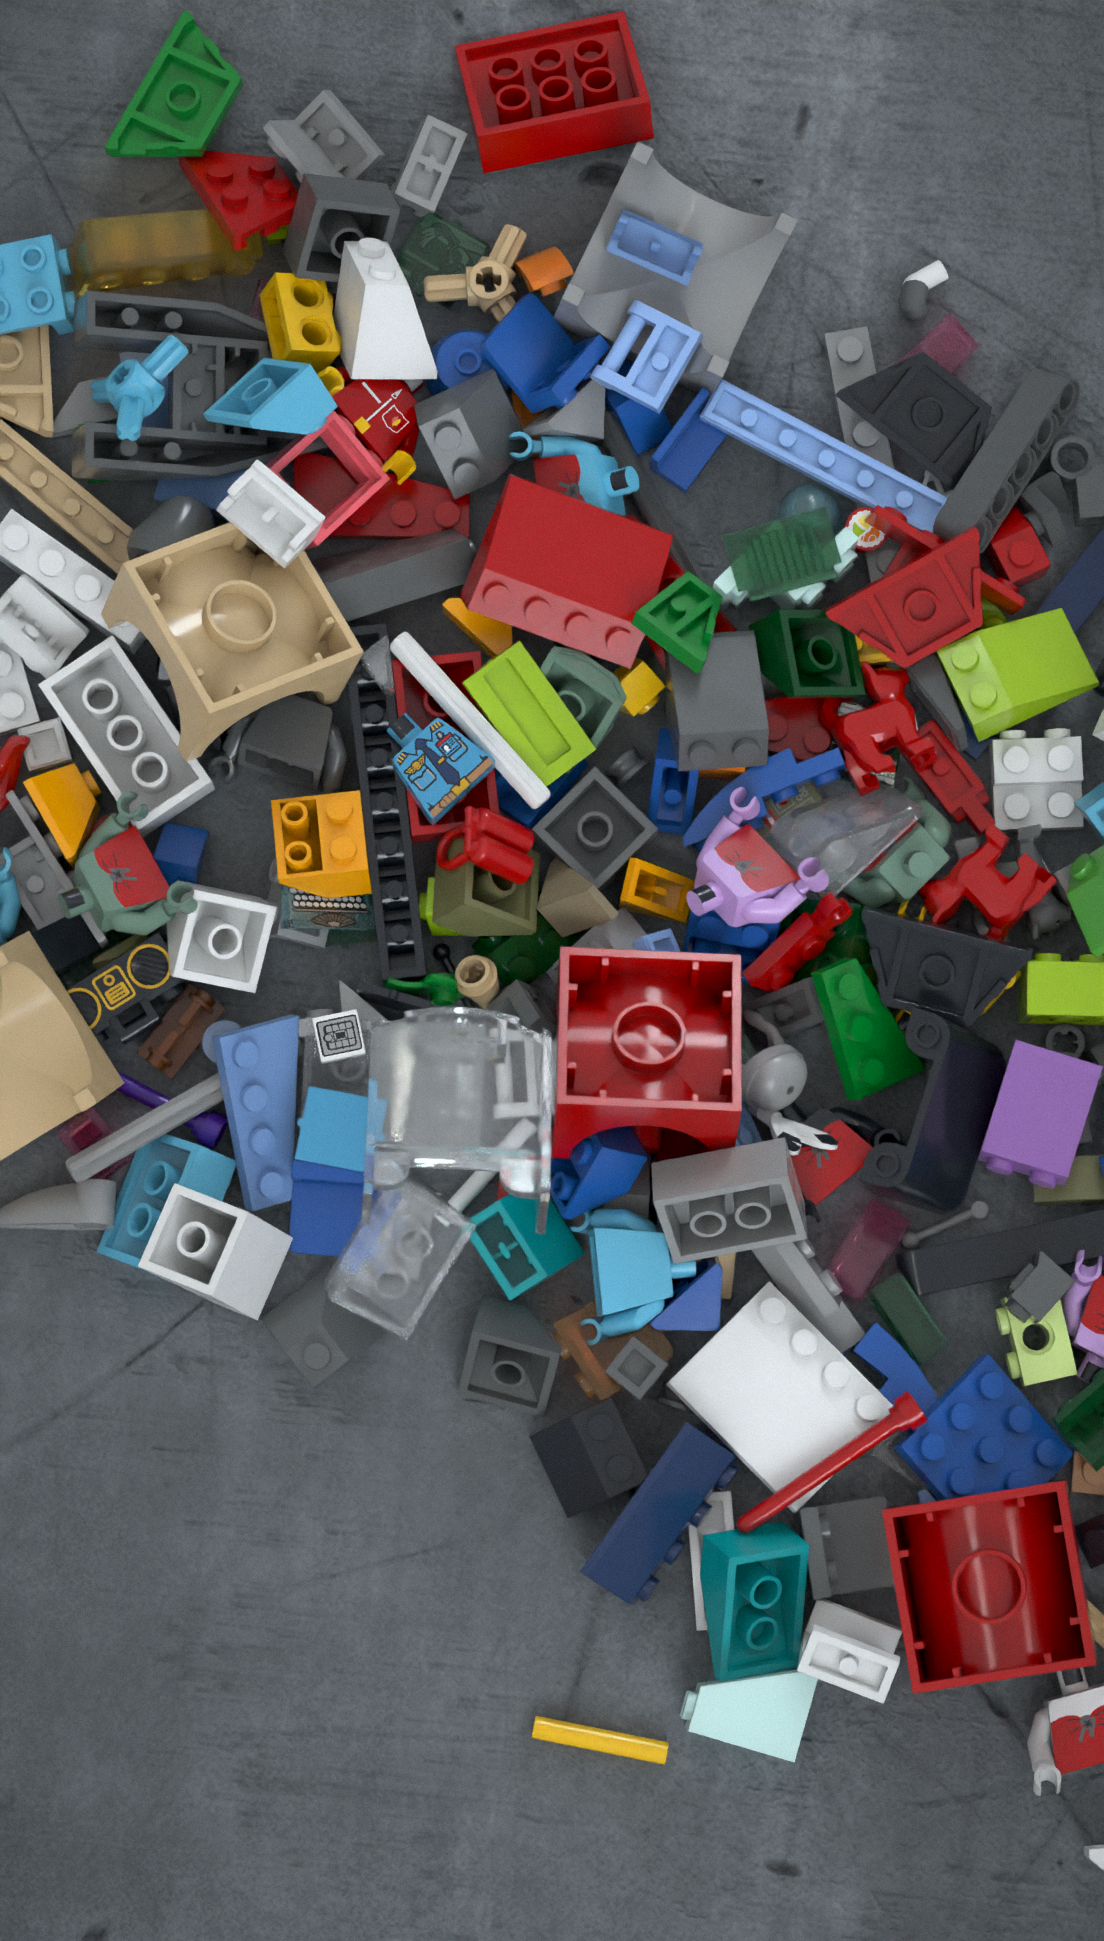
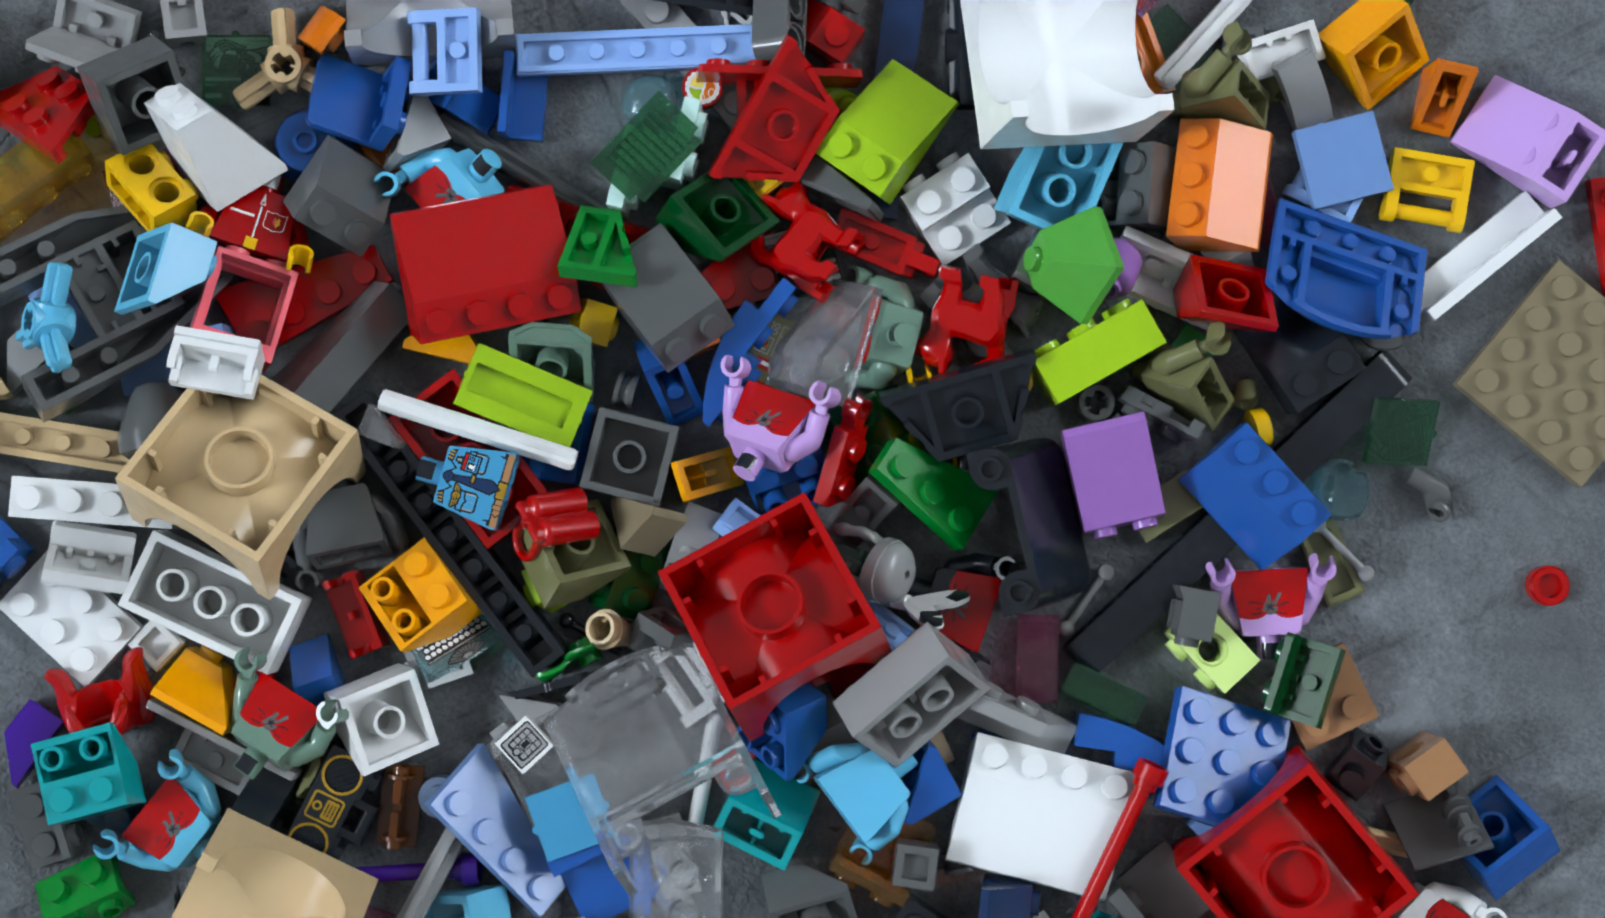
camera: 30 degrees left, 5 degrees up
(247, 827) = (354, 615): none -> red hinge

